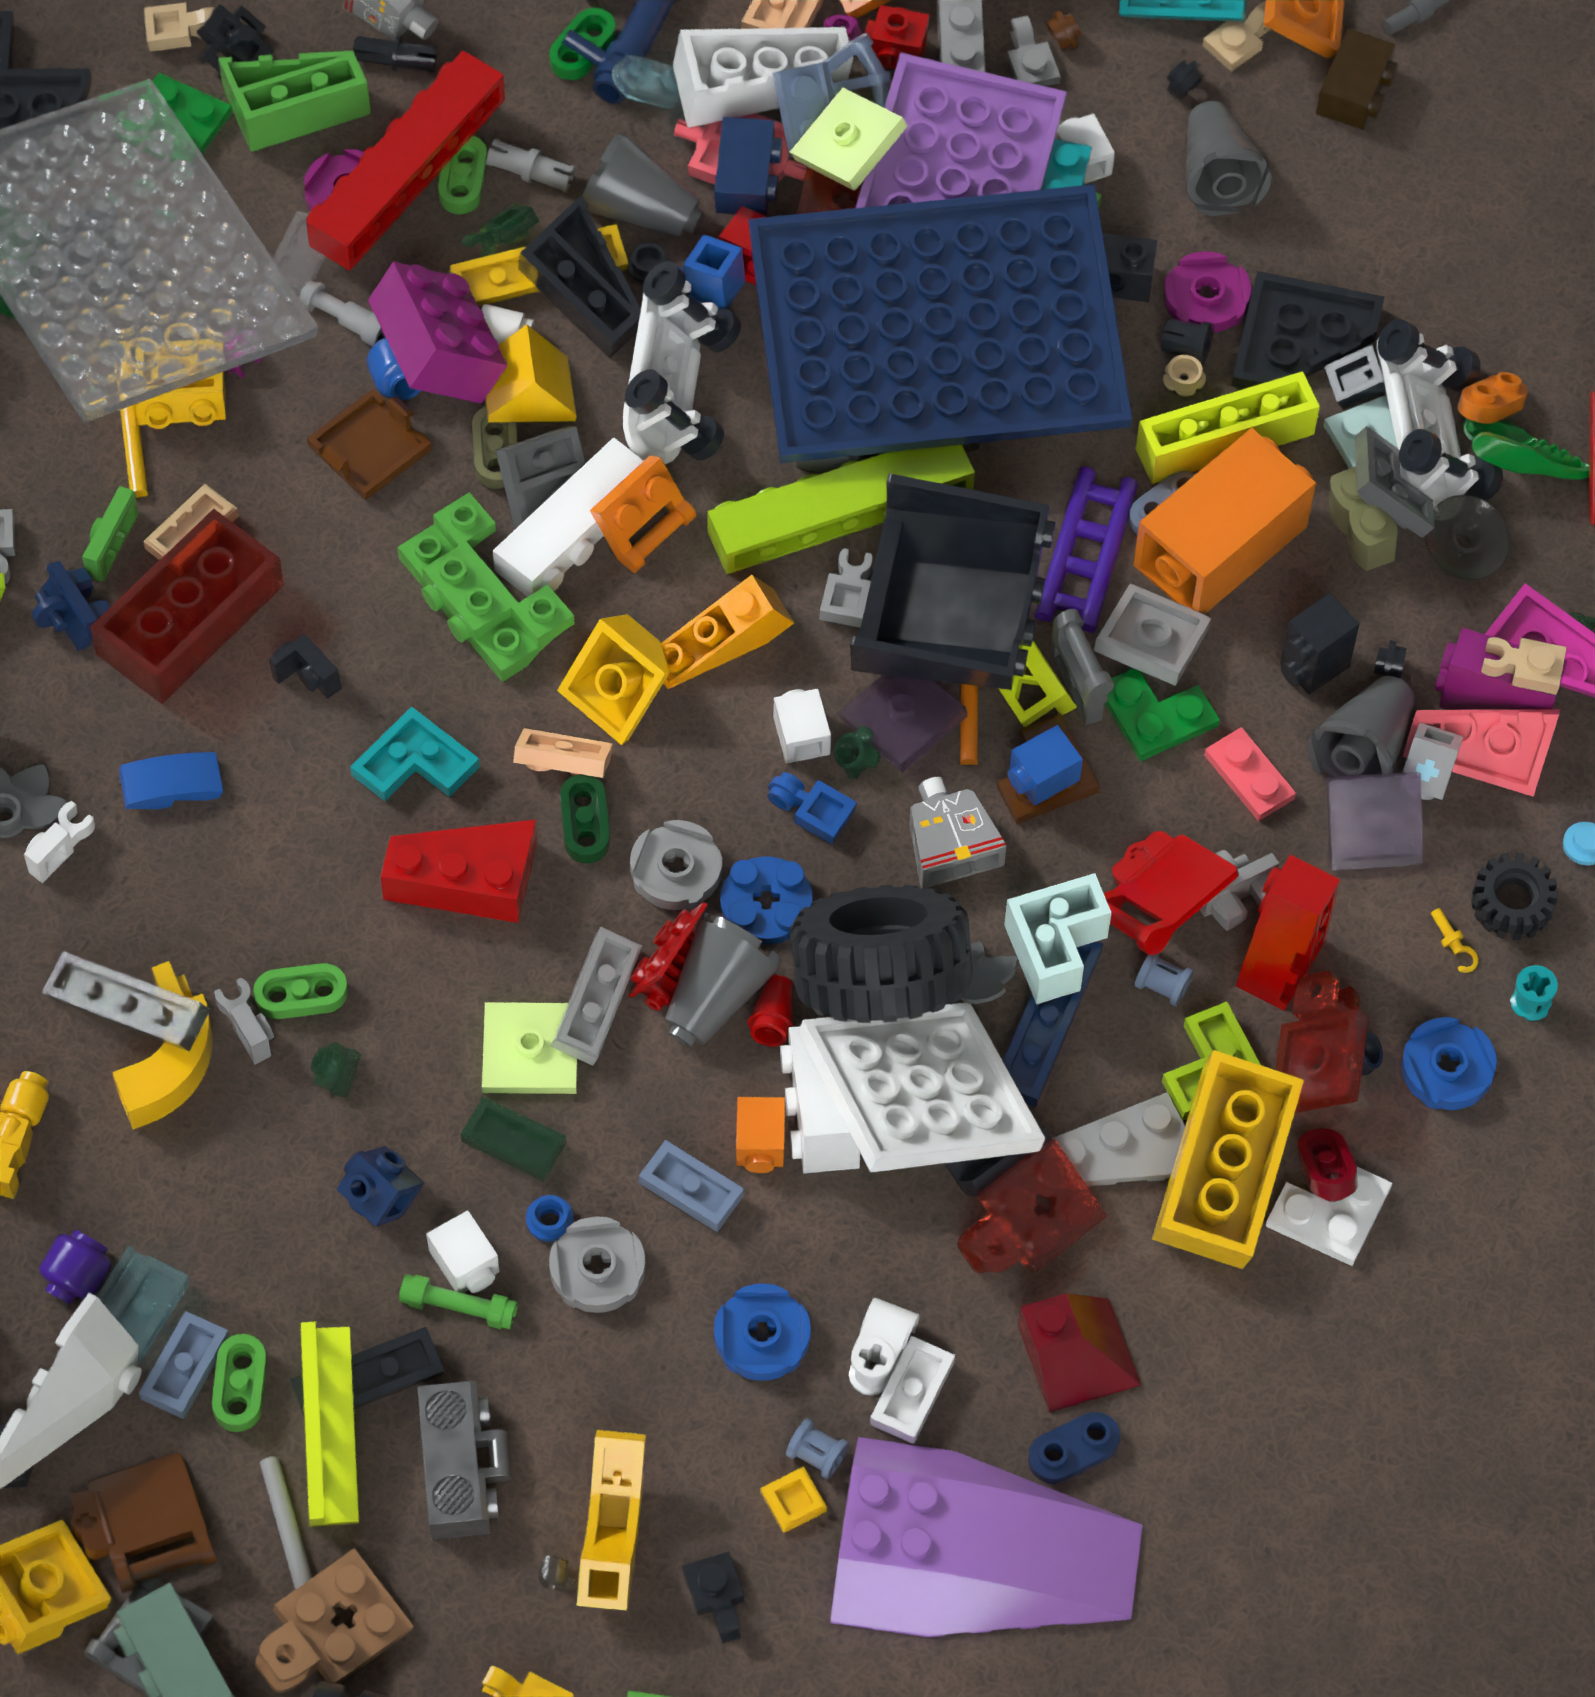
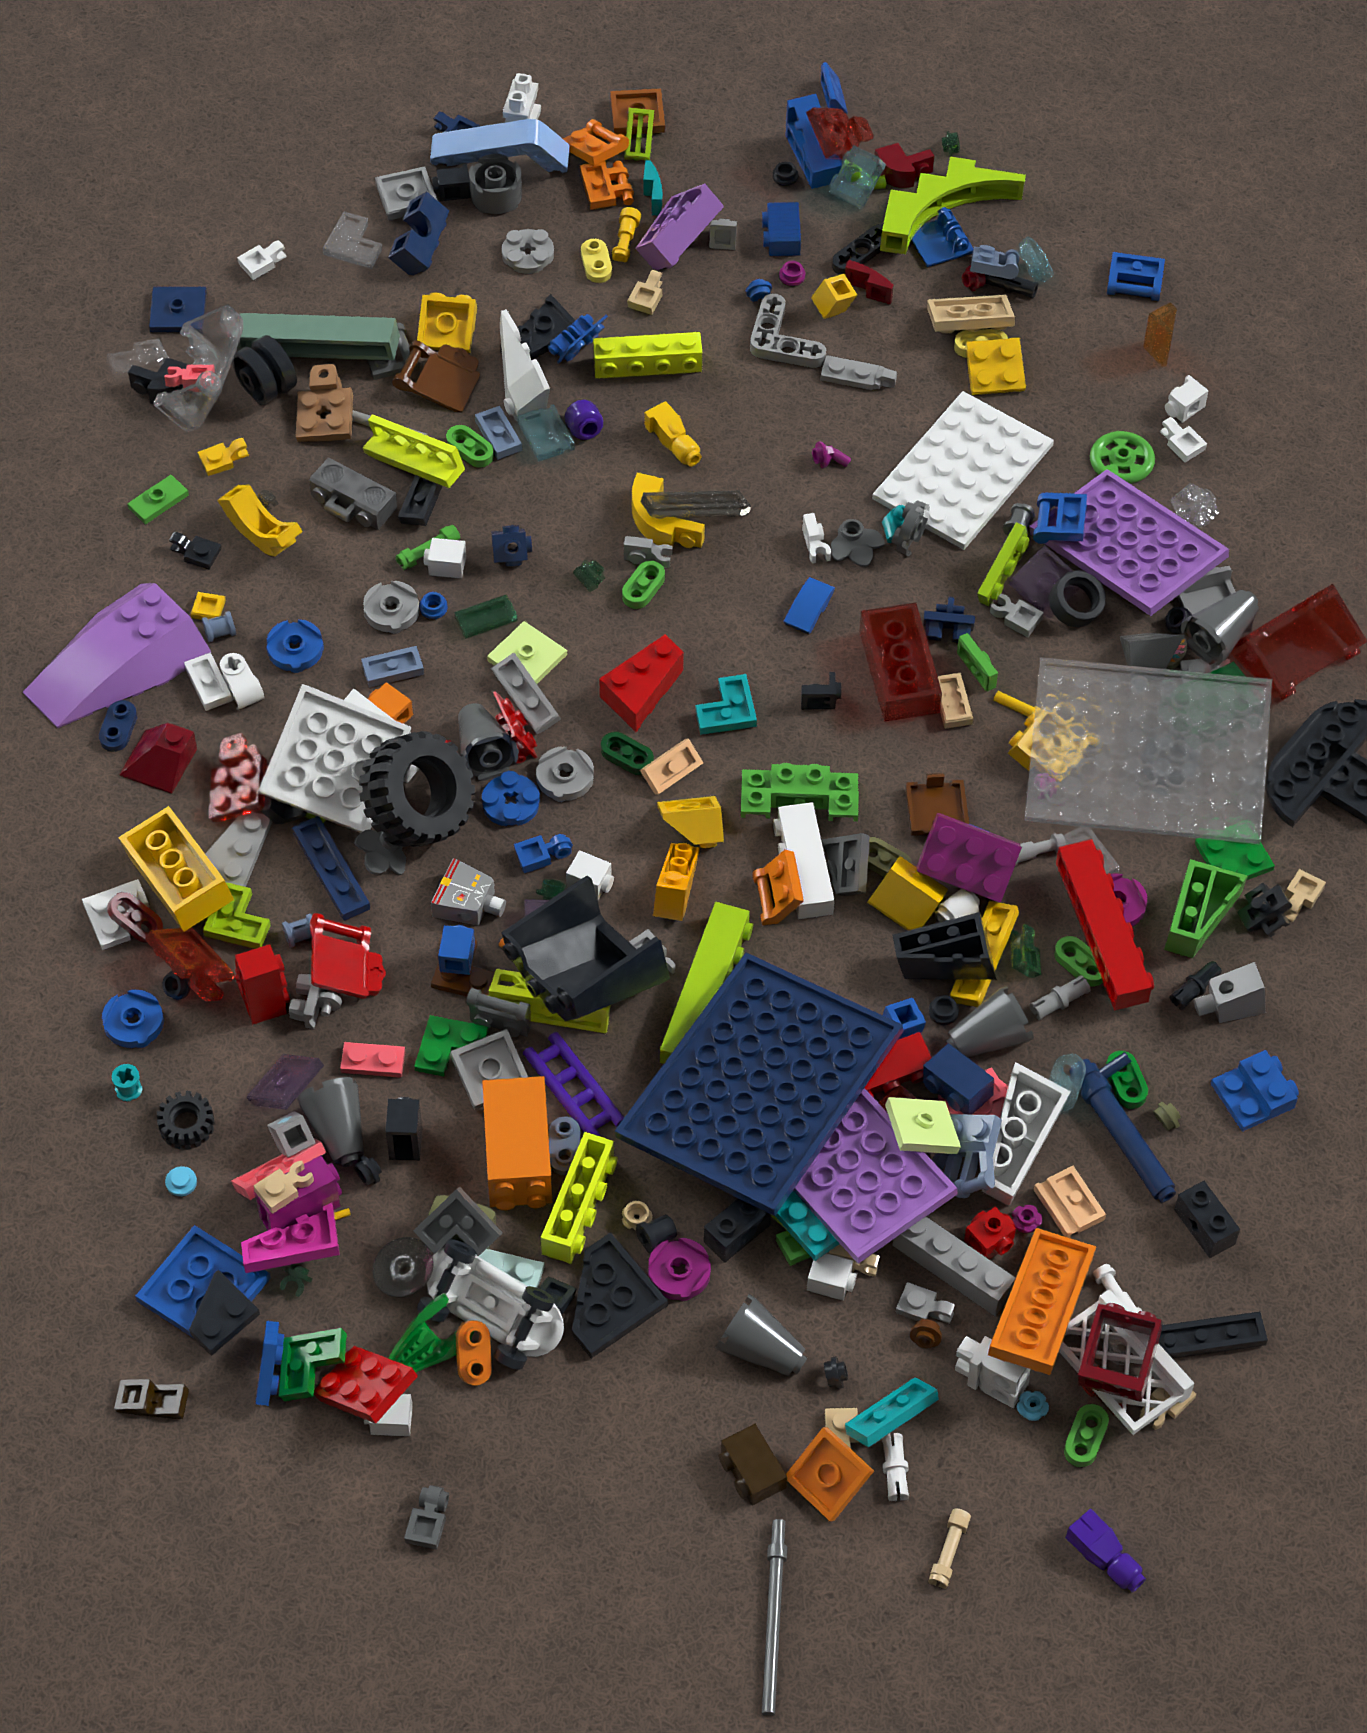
camera: 130 degrees right, 5 degrees down
(666, 368) = (857, 956): piece -> none
(1050, 926) = (362, 877): light aqua brick -> none
(1453, 939) = (194, 1078): yellow hand -> none

